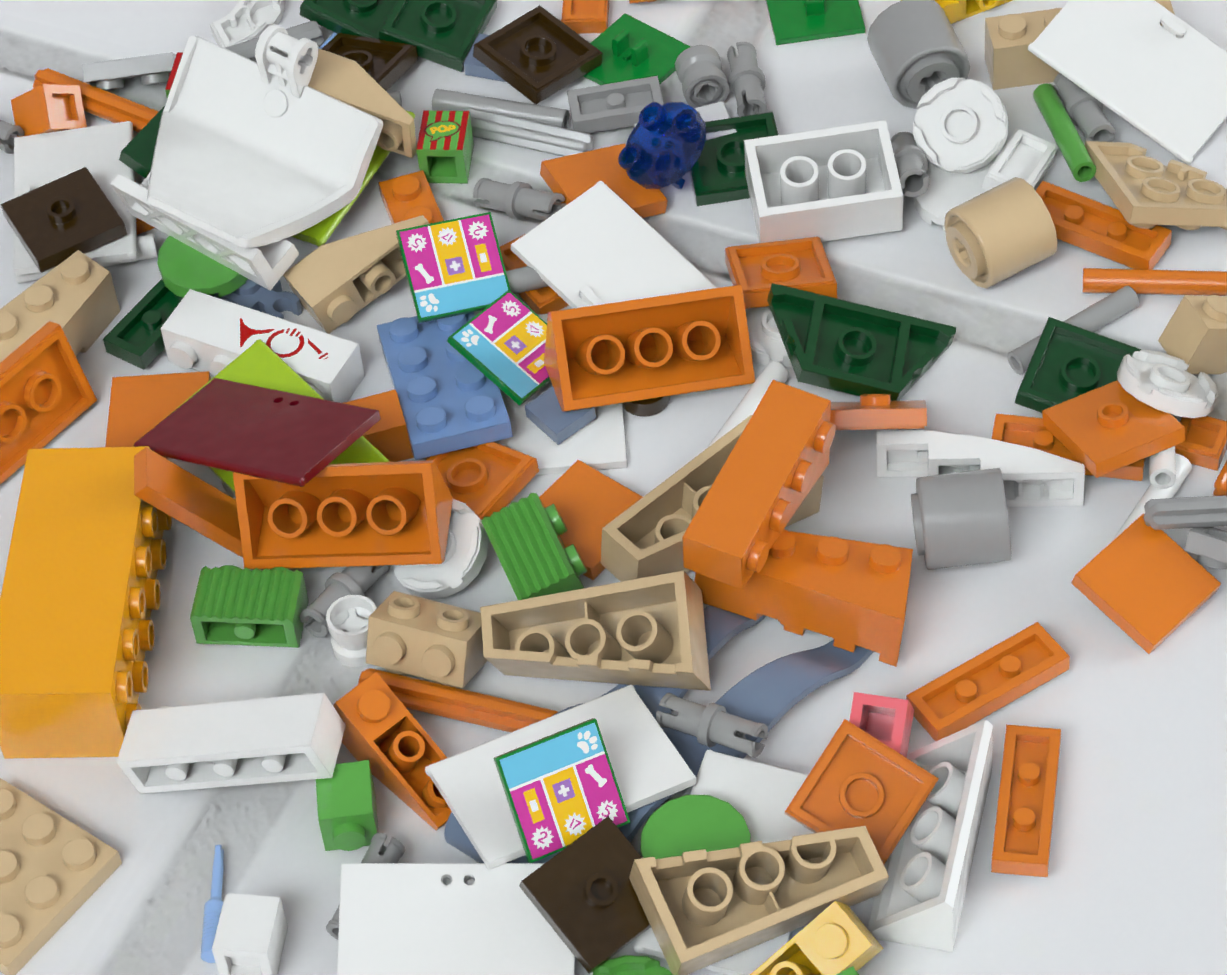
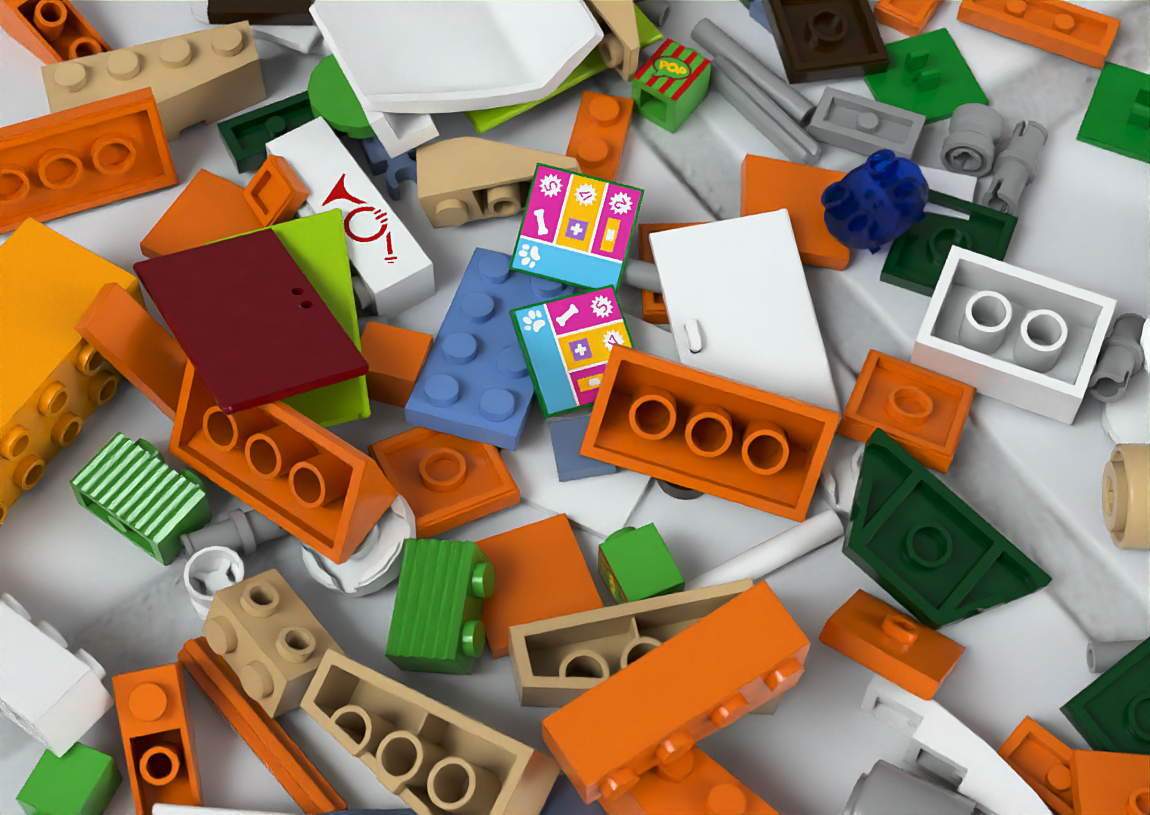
camera: 25 degrees right, 10 degrees up
(194, 358) = (275, 192): none -> orange tile
(517, 199) = (700, 182): light grey pin -> none
(656, 458) = (638, 565): none -> bright green brick

